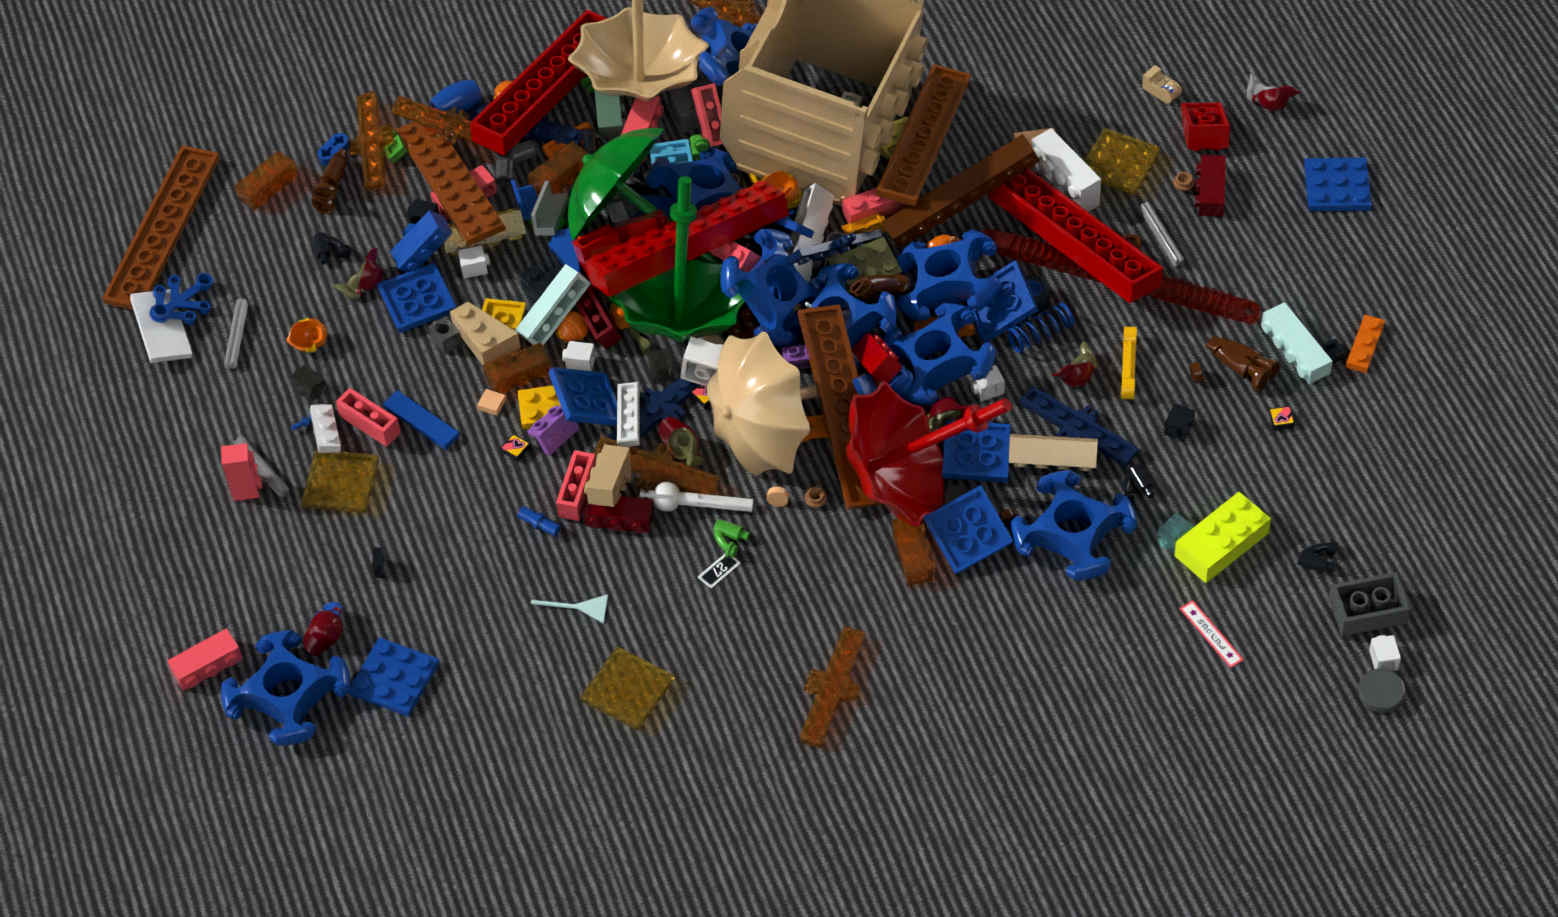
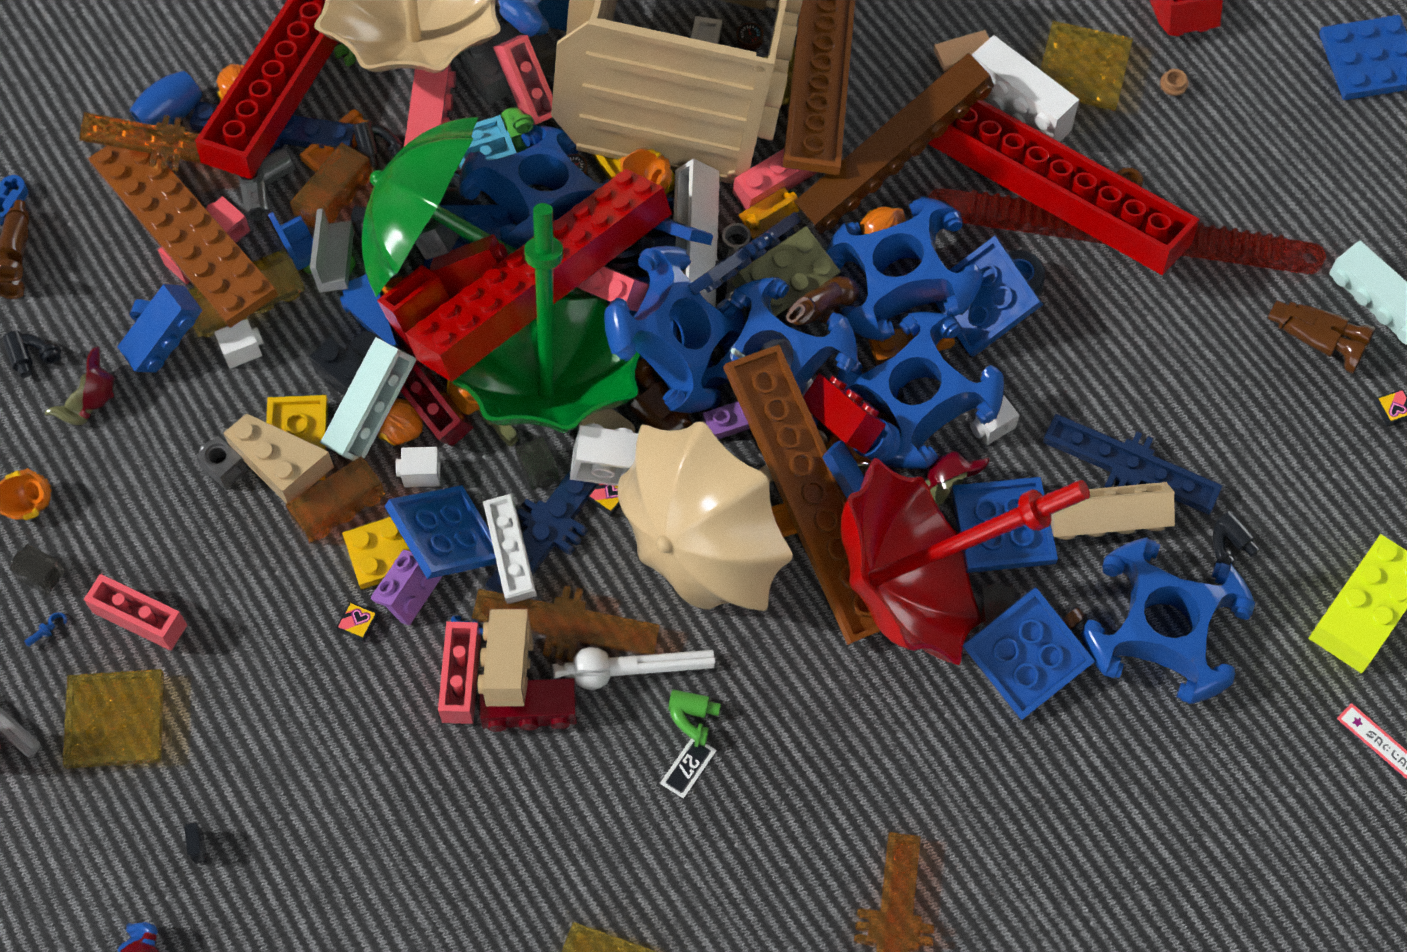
camera: 15 degrees left, 10 degrees up
(325, 428) = (76, 639): white plate -> none
(371, 141) = (58, 180): clear orange hinge -> none
(396, 149) = (93, 183): bright green plate -> none
(416, 297) = (169, 410): blue plate -> none
(419, 209) = (150, 277): black brick -> none
(421, 420) = (212, 600): blue tile -> none
(491, 402) = (308, 555): light nougat tile -> none
(539, 521) = (416, 735): blue pin -> none
(594, 607) = (521, 859): light aqua piece -> none
(610, 115) = (385, 97): sand green brick -> none
(682, 439) = (595, 576): olive hair -> none
(777, 496) = (746, 640): light nougat tile -> none
(815, 492) = (801, 624): medium nougat plate -> none
(913, 552) = (956, 698): clear orange brick -> none
(1010, 331) = (1018, 340): blue piece -> none
(1080, 369) = (1111, 378): dark red hair -> none
(1128, 364) = (1182, 391): yellow piece -> none
(1161, 234) = (1165, 162): light grey axle -> none
(1172, 531) = (1304, 607): clear light blue brick -> none
(1179, 422) = (1265, 437): black brick -> none
(1196, 372) = (1267, 359): reddish brown tile -> none
(1211, 185) = (1213, 83): dark red brick -> none

